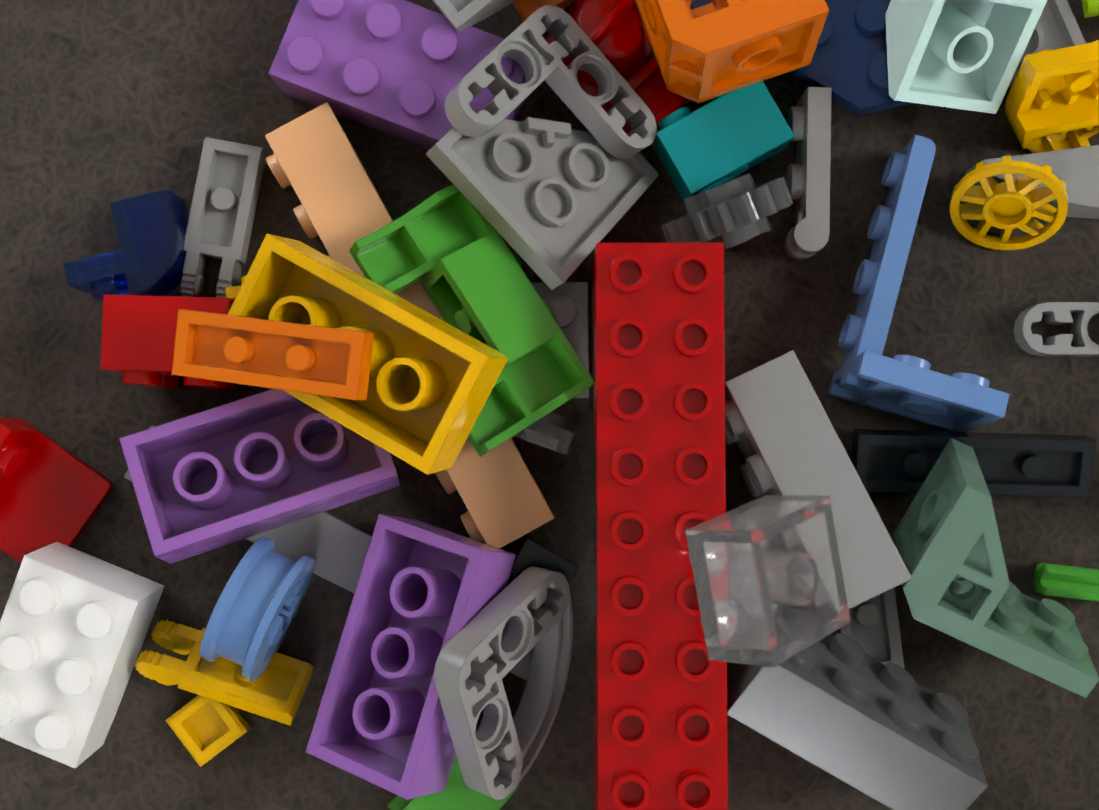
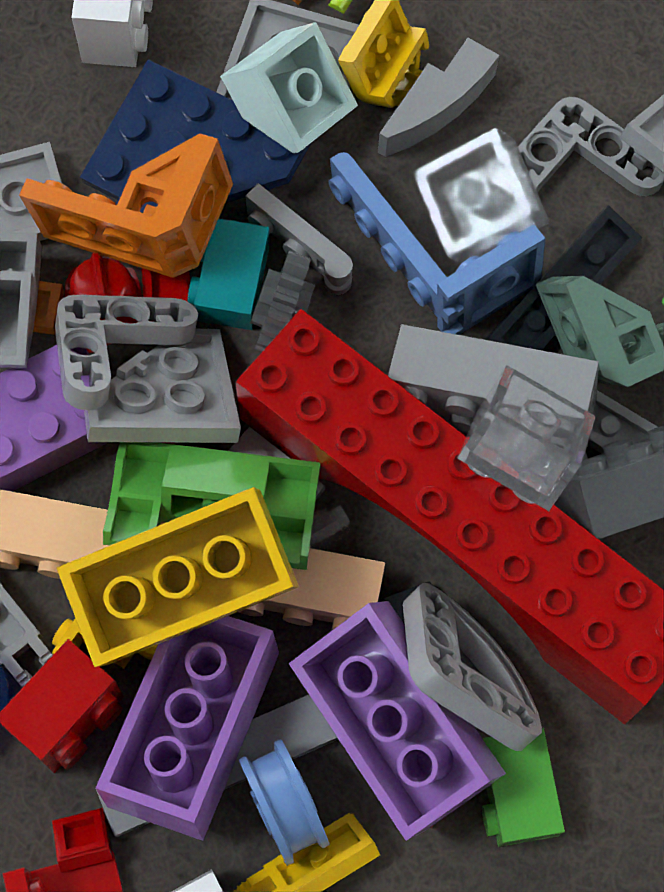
camera: 55 degrees left, 15 degrees down
(93, 453) = (82, 840): none -> red tile
(273, 354) = (135, 620): orange plate -> none
(1000, 312) = (480, 195): none -> clear brick
(1009, 204) = (419, 138): yellow wheel -> none

